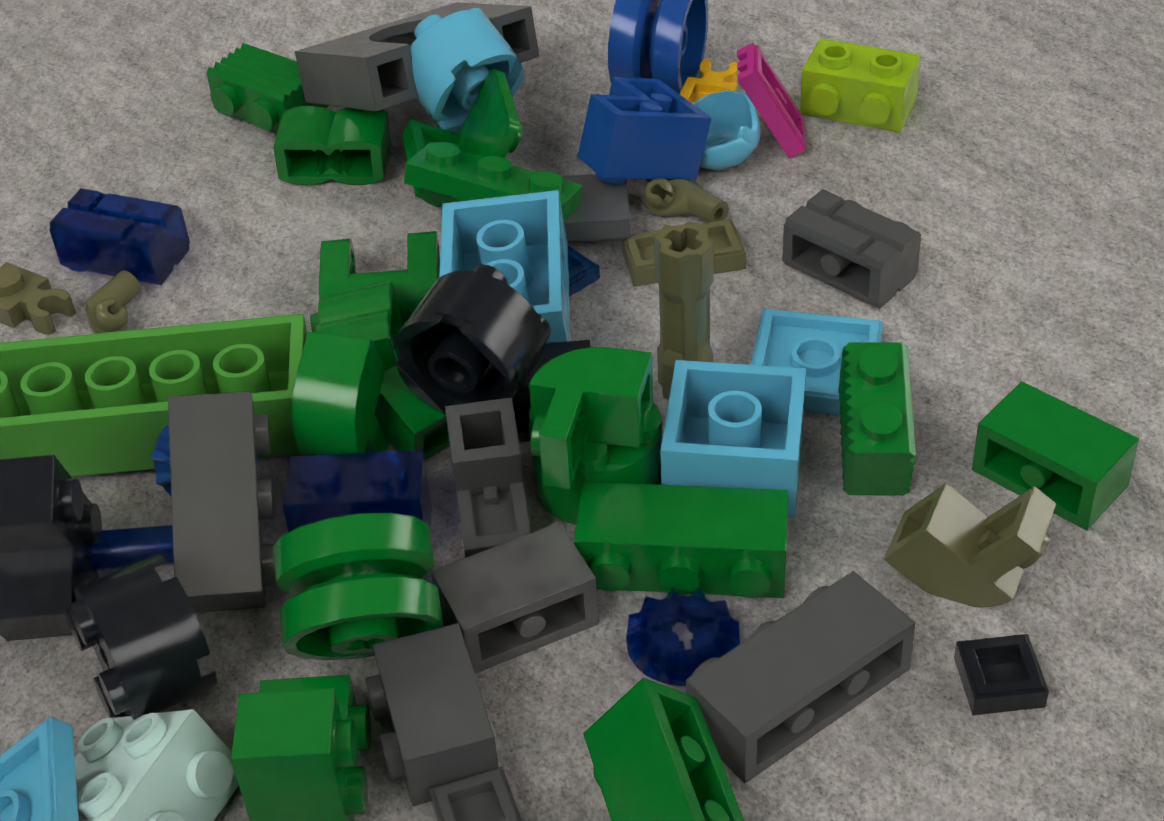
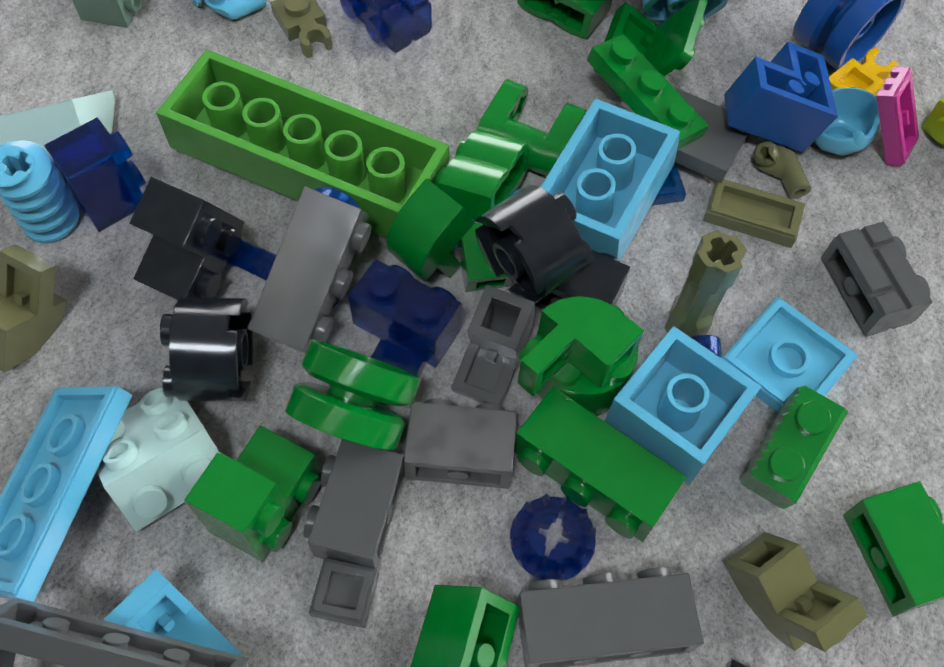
camera: 25 degrees right, 20 degrees up
(107, 307) = (349, 55): olive arm -> none

